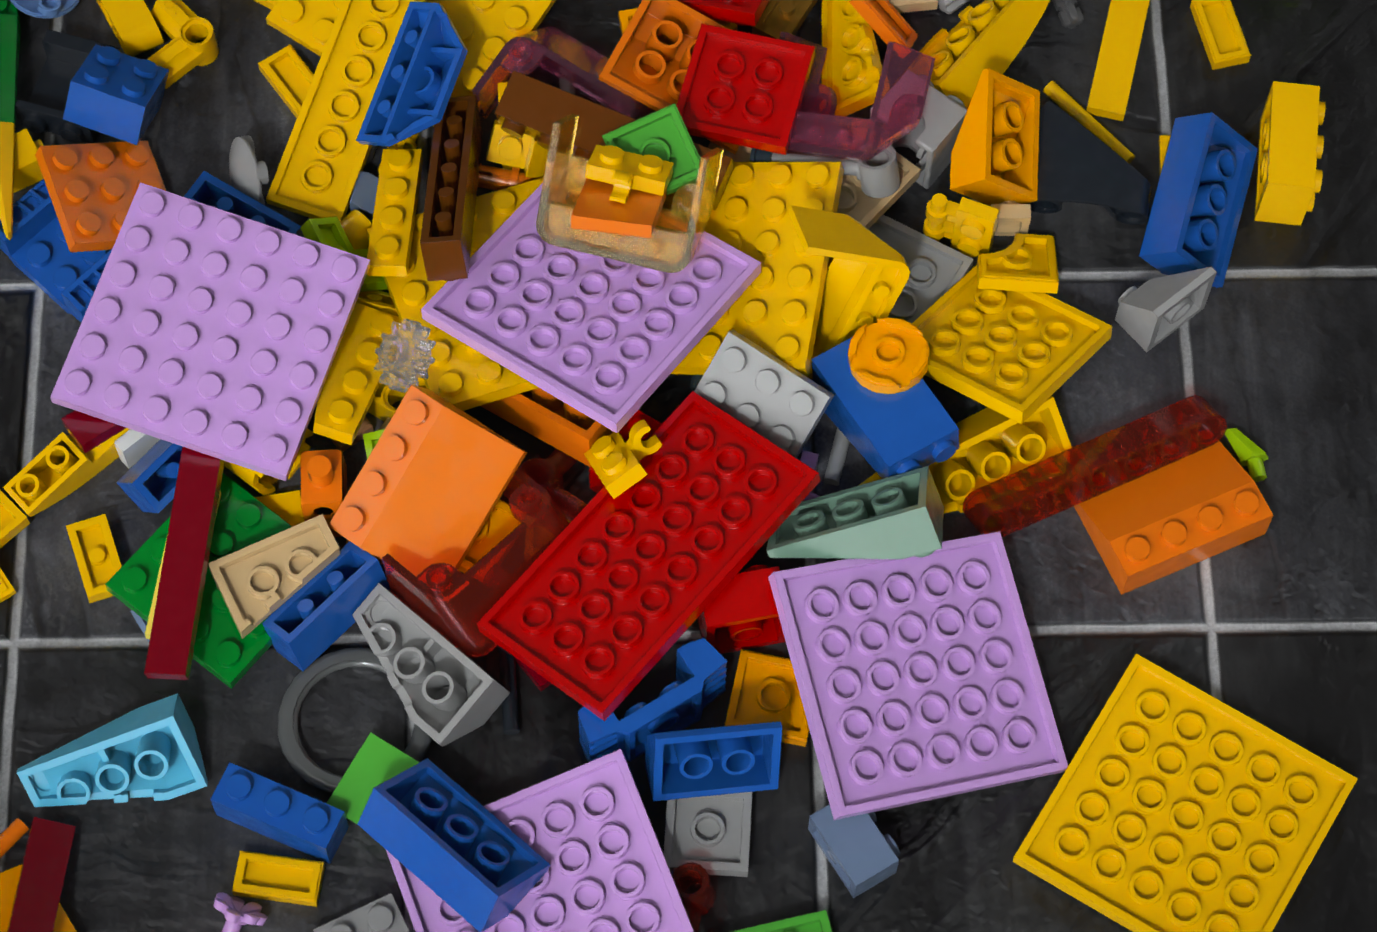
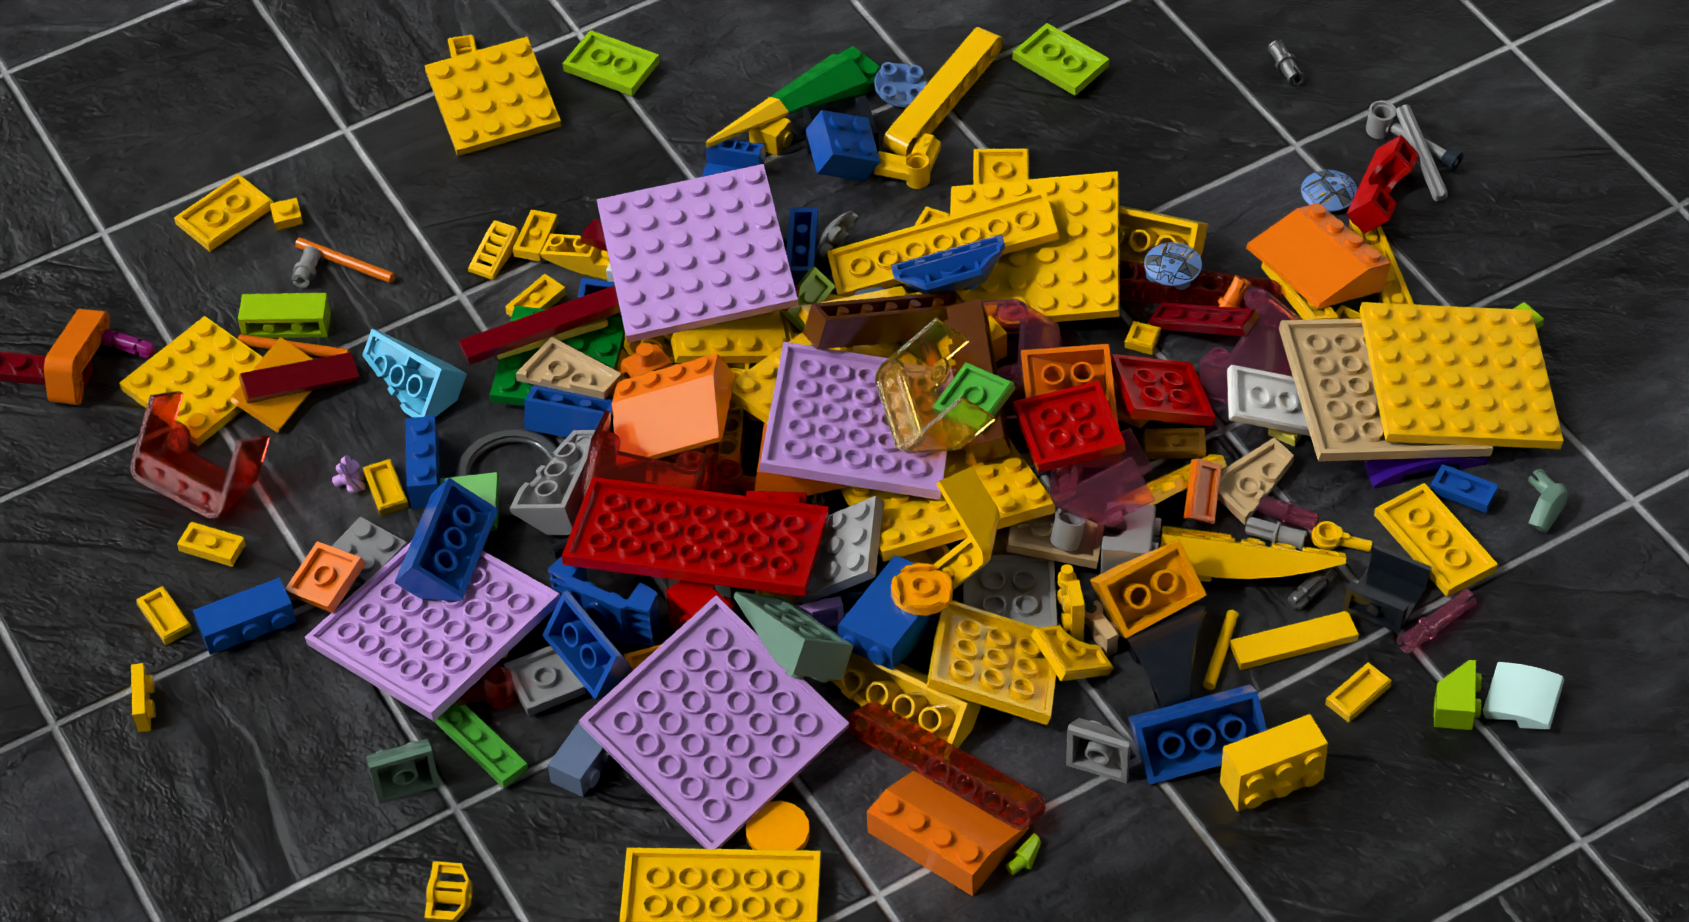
camera: 65 degrees right, 15 degrees down
(95, 188) = (788, 171): orange plate -> none
(404, 355) = (748, 352): clear gear -> none
(600, 214) = (914, 389): orange tile -> none
(618, 461) = (751, 488): yellow plate -> none
(628, 171) = (941, 377): yellow plate -> none
(1076, 683) = (778, 827): none -> light orange tile

